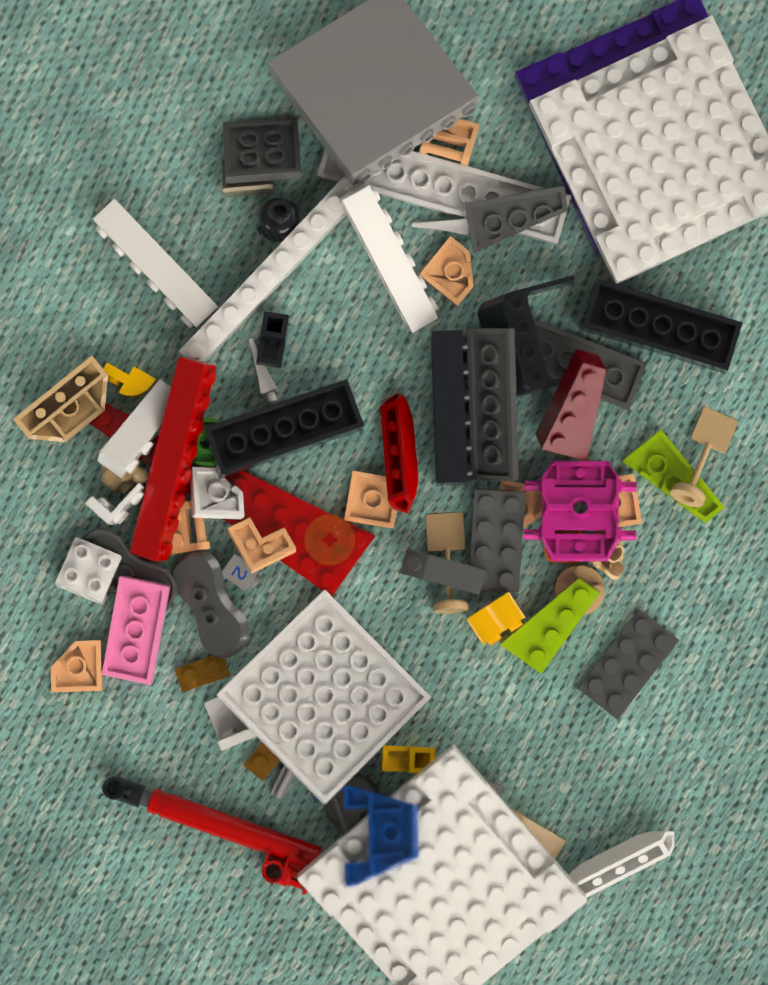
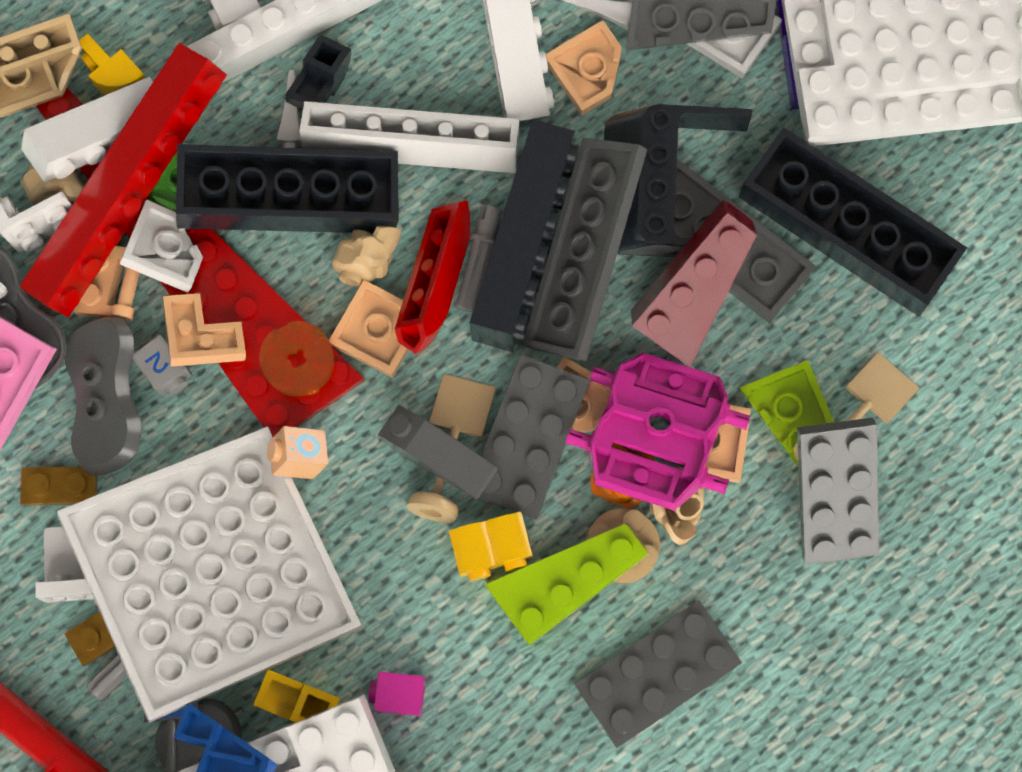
camera: 20 degrees right, 10 degrees down
(348, 454) = (365, 255): none -> tan head
(350, 363) = (418, 136): none -> white brick
(352, 601) = (298, 452): none -> light nougat brick
(422, 429) = (479, 255): none -> light grey axle
(469, 732) = (397, 694): none -> dark pink brick
(707, 513) = (838, 490): none -> plate

